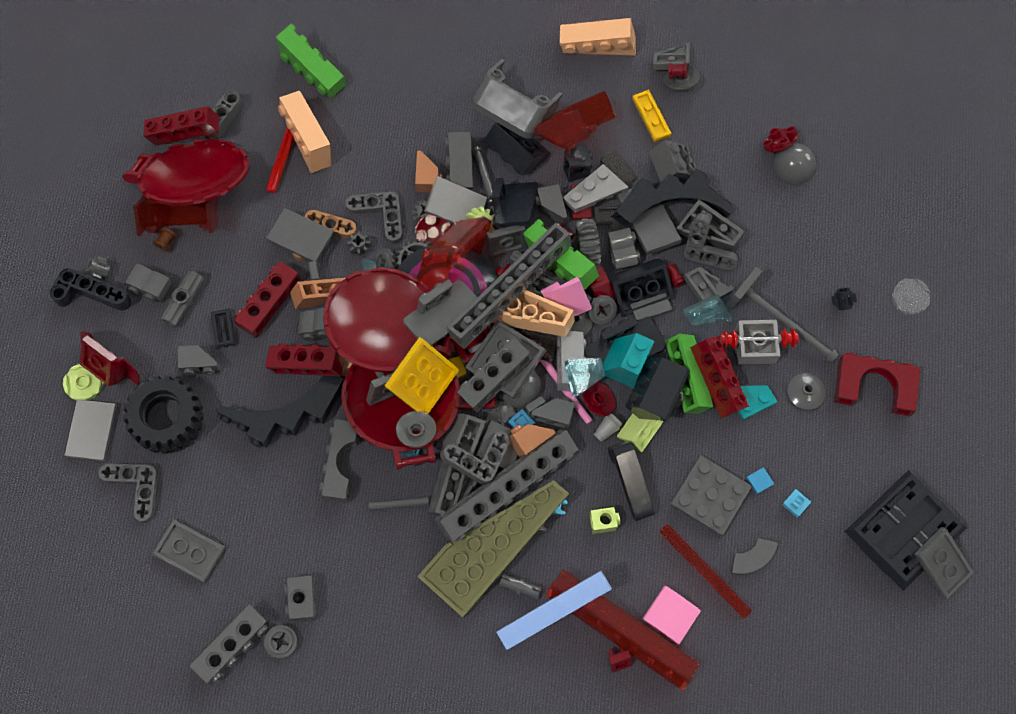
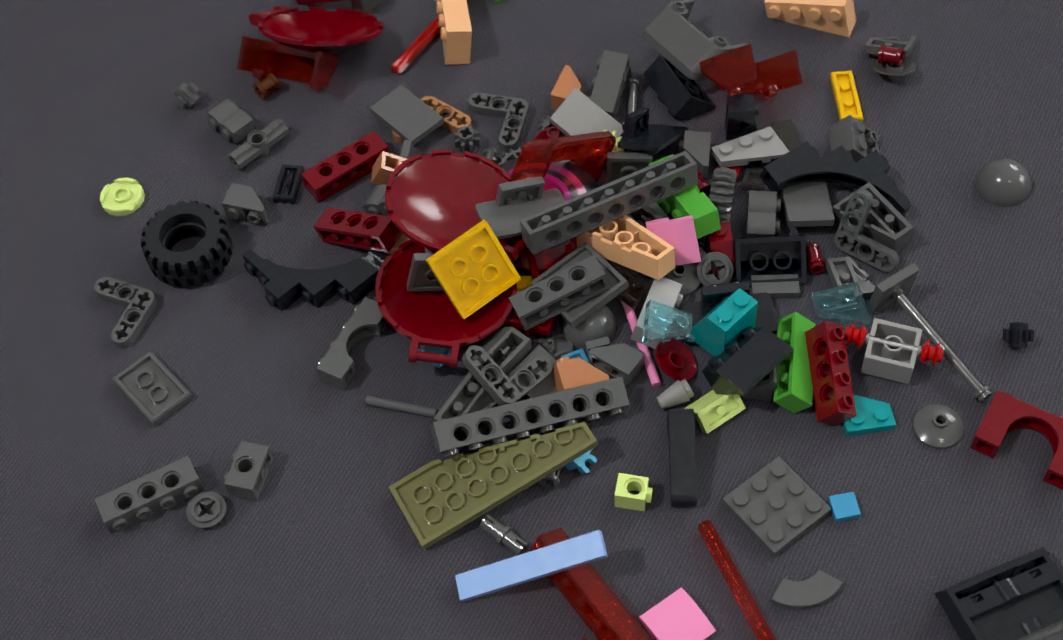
camera: 25 degrees right, 15 degrees down
(90, 430) = (107, 243): light grey tile -> none
(93, 292) = (156, 101): black beam -> none
(104, 363) = (148, 180): dark red piece -> none
(413, 422) = (446, 323): dark grey dish -> none
(780, 139) = (992, 151): dark red dish -> none
(796, 503) = (883, 546): medium azure tile -> none

